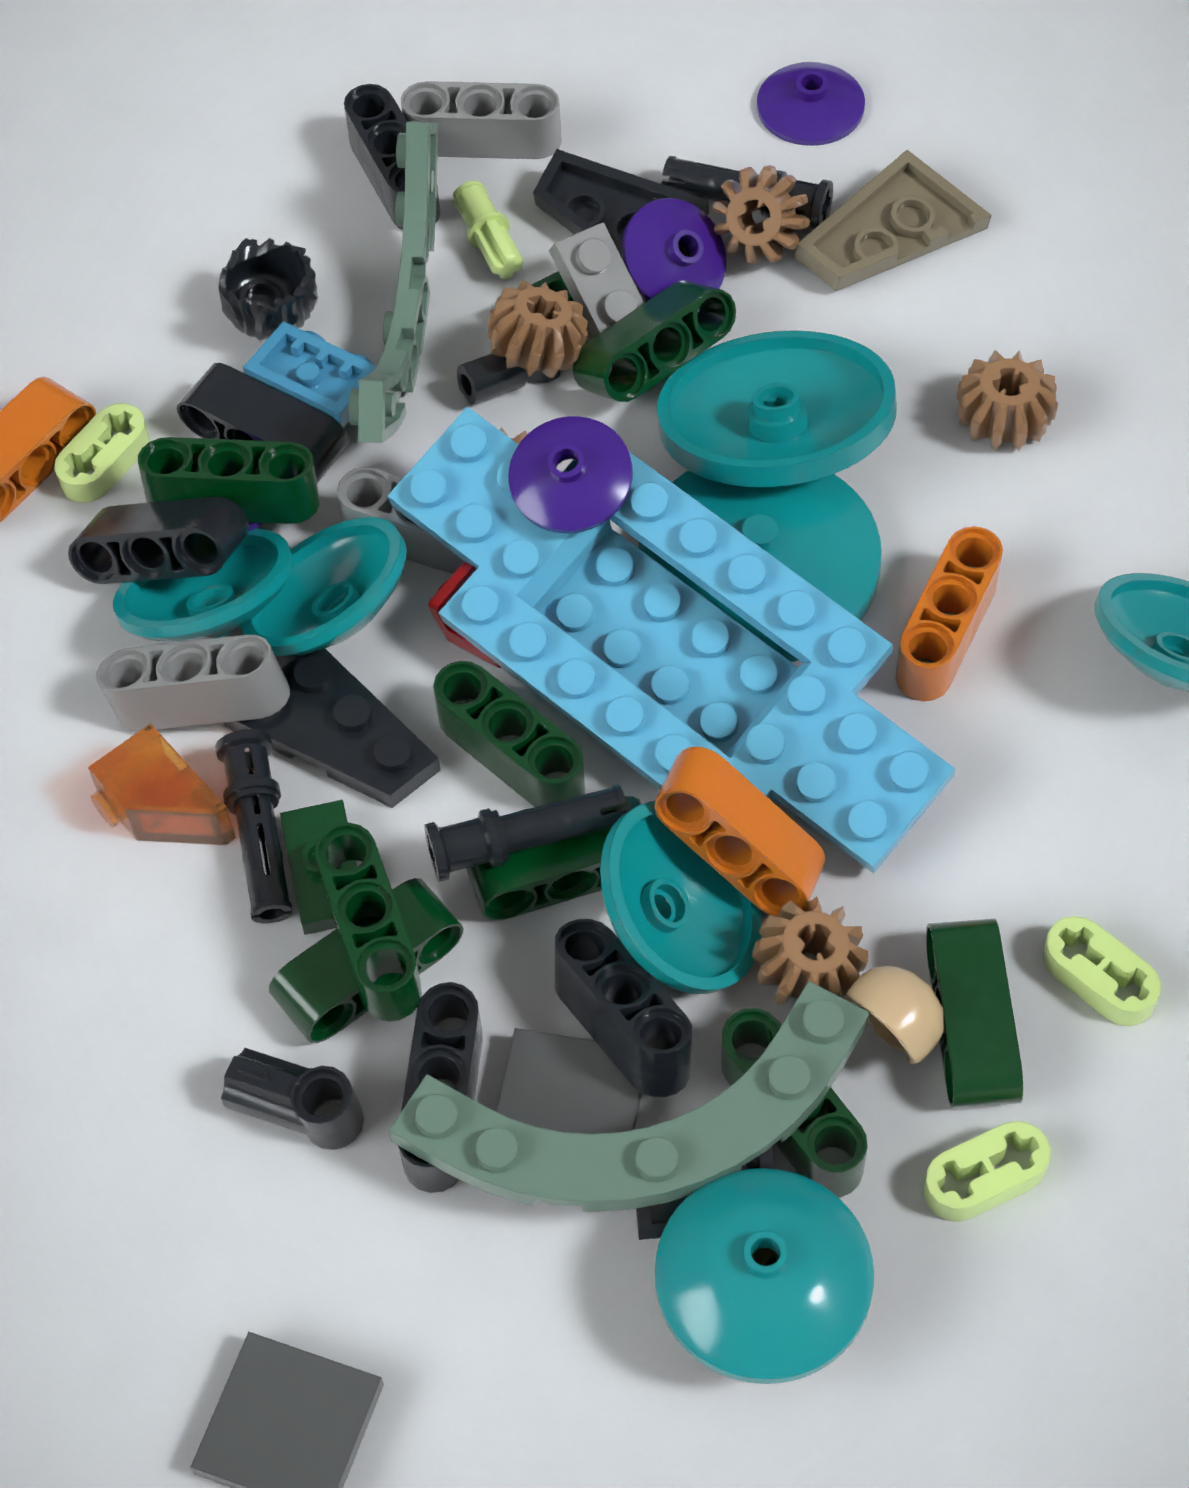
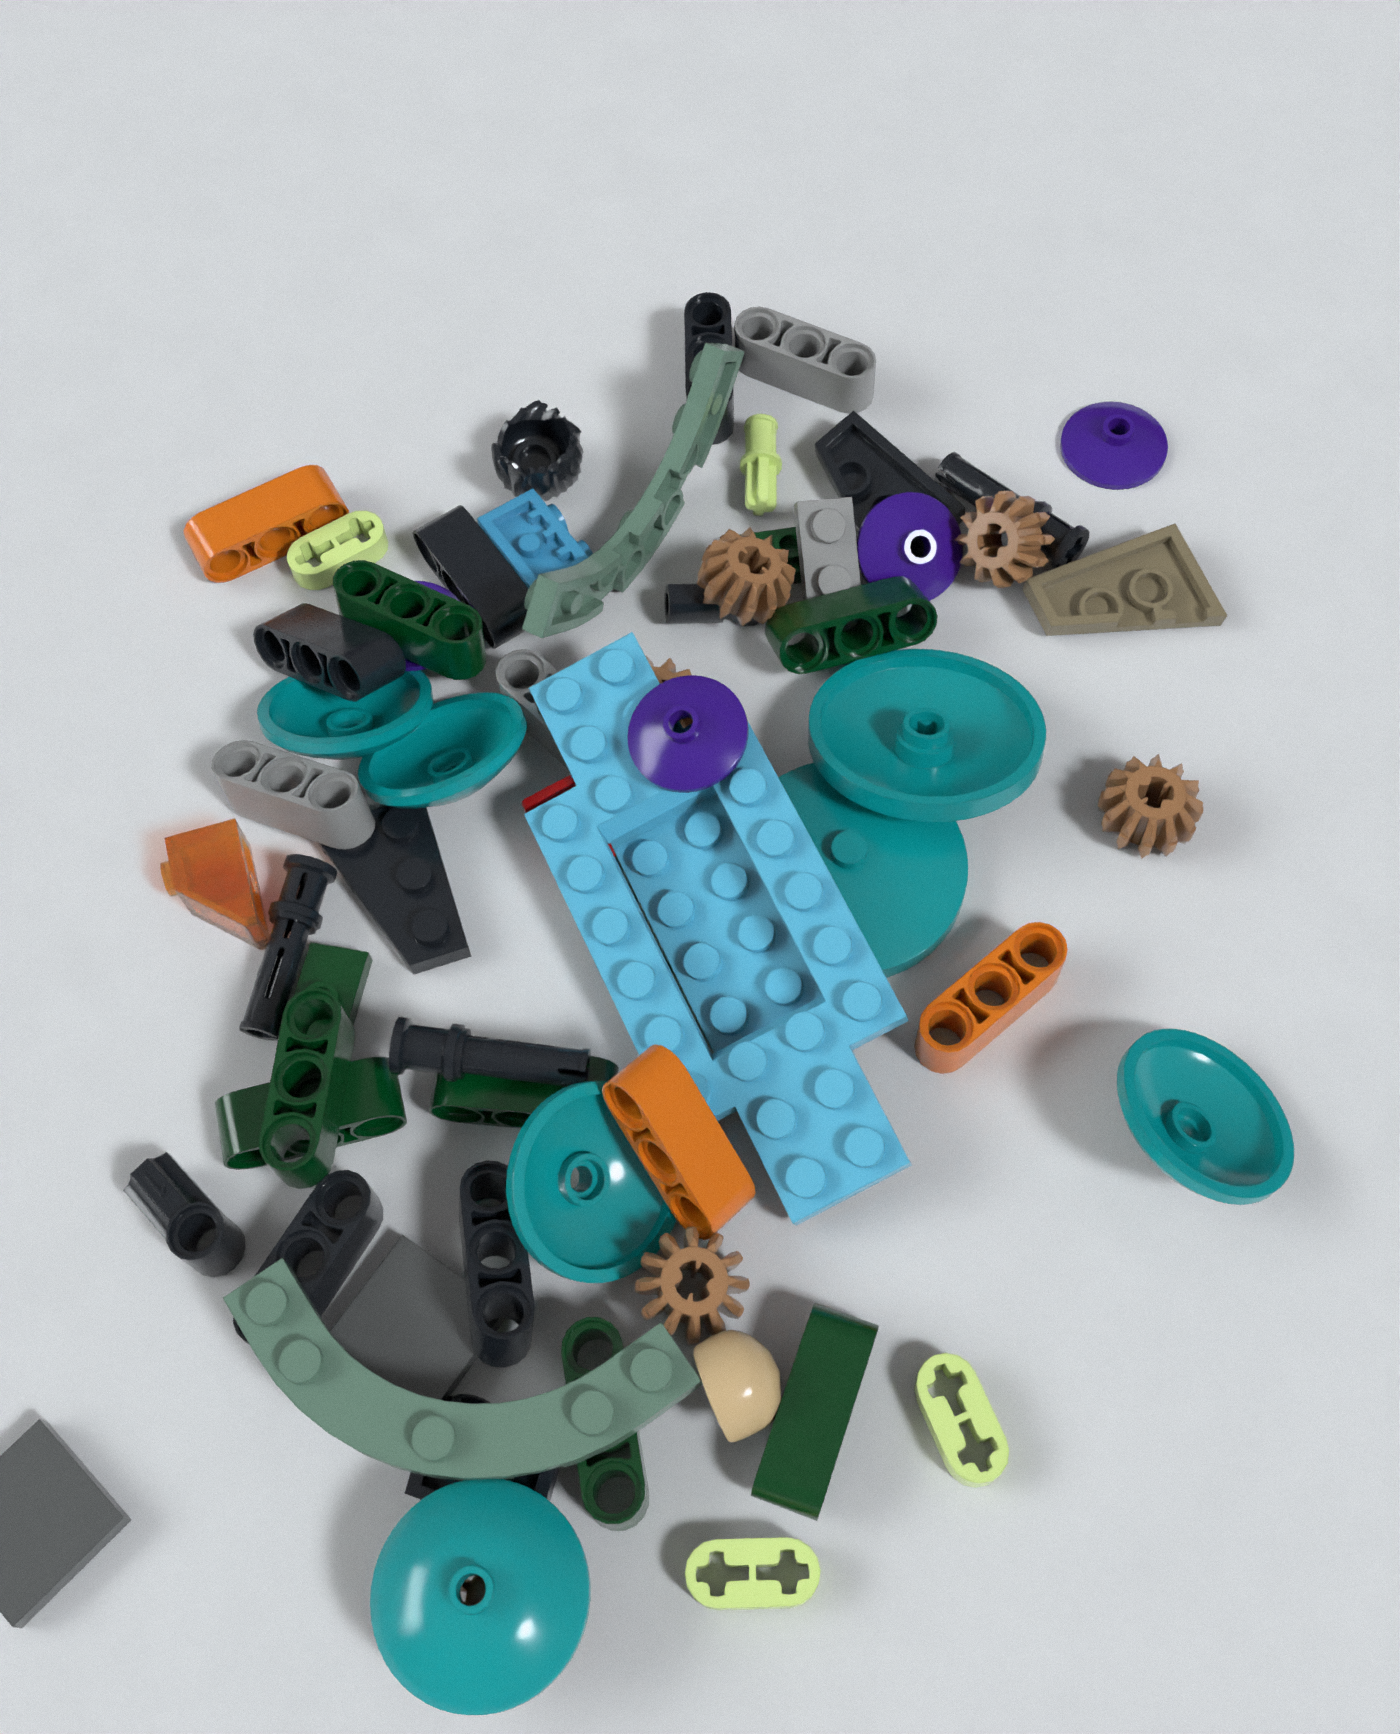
camera: 25 degrees right, 5 degrees up
(499, 713) = (529, 929): dark green beam -> none

